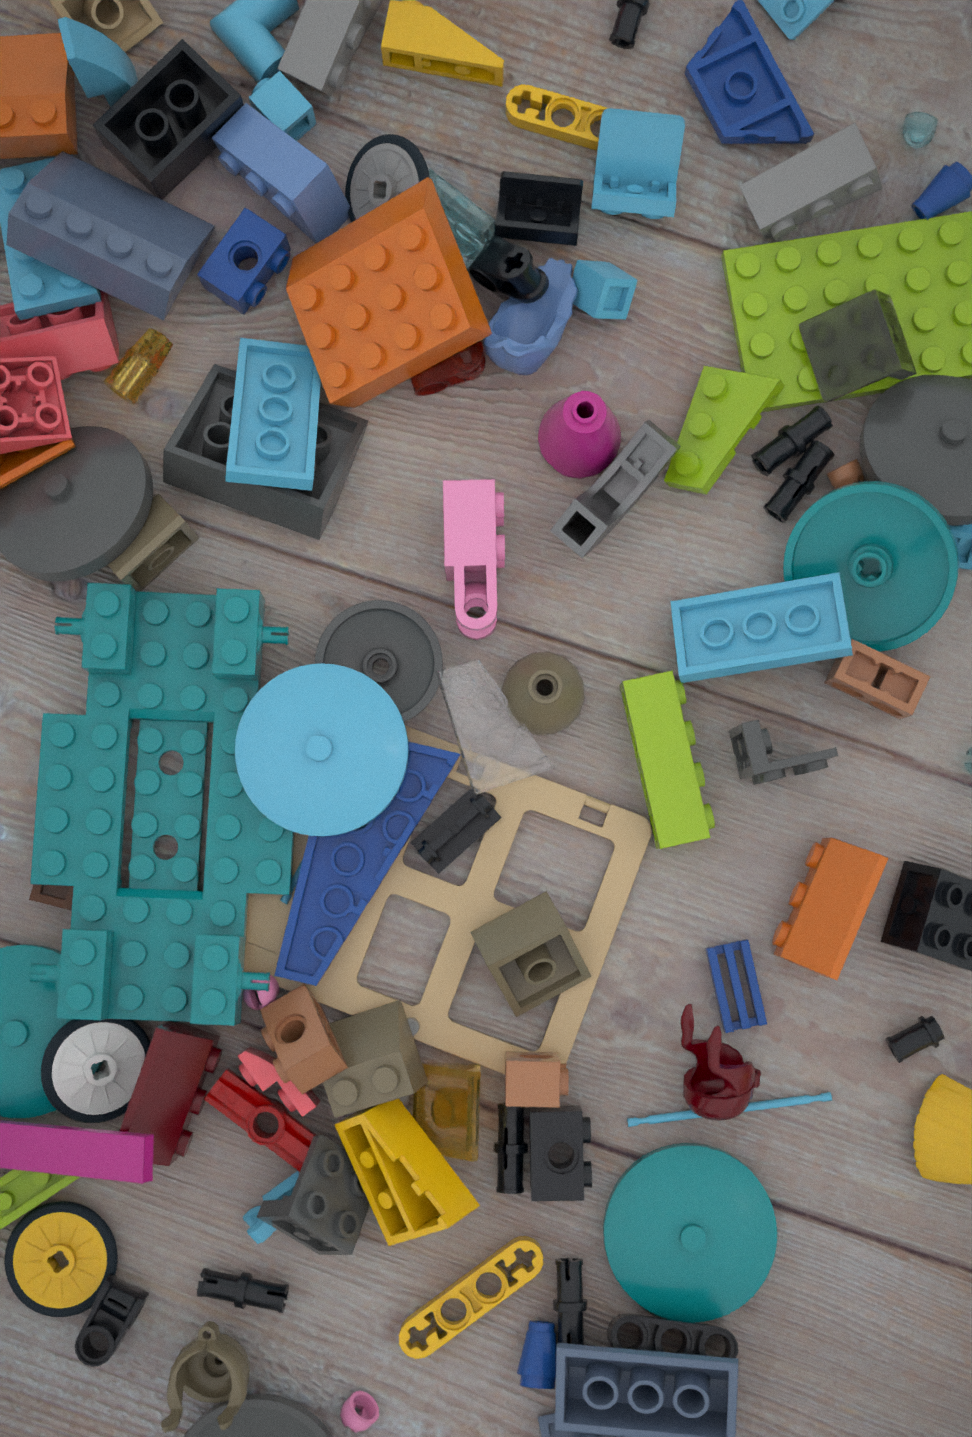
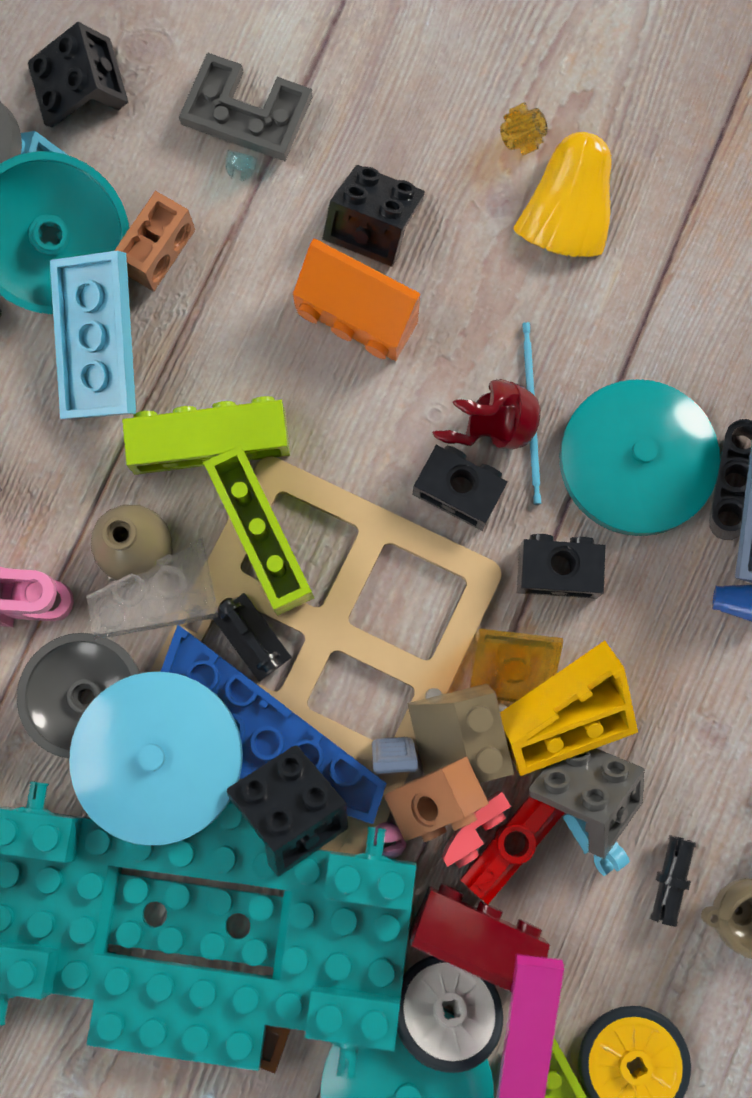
camera: 85 degrees left, 5 degrees down
(112, 1315) = (691, 1016): black piece -> none
(282, 891) = (290, 808): none -> black bracket
(343, 991) = (394, 755): none -> sand blue slope
(467, 1291) = (693, 657): yellow beam -> none
(510, 1149) = (553, 611): black pin -> none
(531, 954) = (373, 574): dark tan slope -> none
(535, 1079) = (491, 578): nougat brick -> none
(565, 828) = (259, 530): none -> lime brick
(570, 1301) = (697, 569): black pin -> none
(634, 1011) = (470, 507): none -> black brick
(744, 1021) = (418, 381): blue tile -> none
(751, 749) = (211, 354): dark grey bracket -> none
(915, 1038) = (476, 236): black pin -> none

